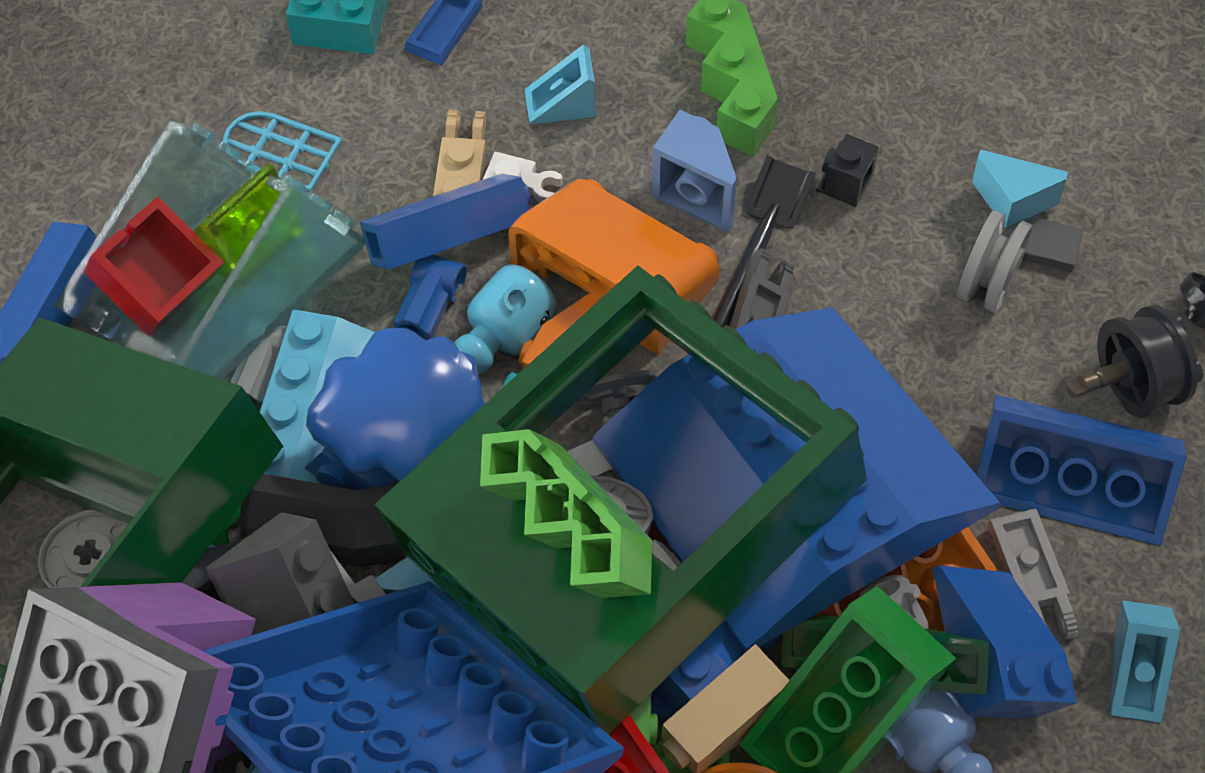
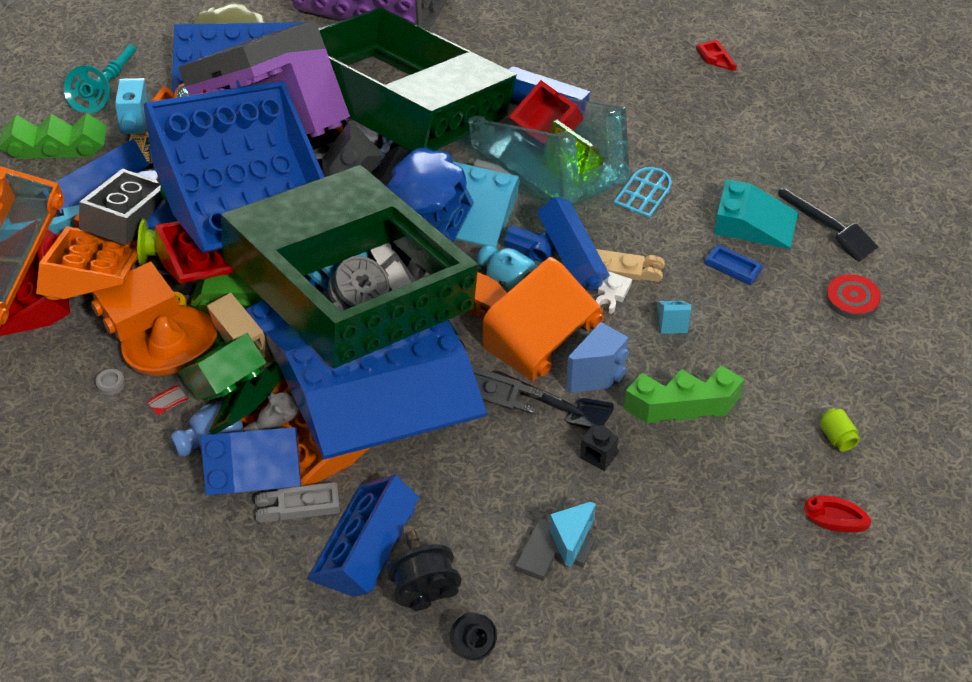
camera: 95 degrees right, 10 degrees down
(569, 510) = (312, 205): bright green brick -> none
(994, 261) = (512, 504): light grey wheel -> none
(1143, 660) = (232, 543): medium azure slope -> none

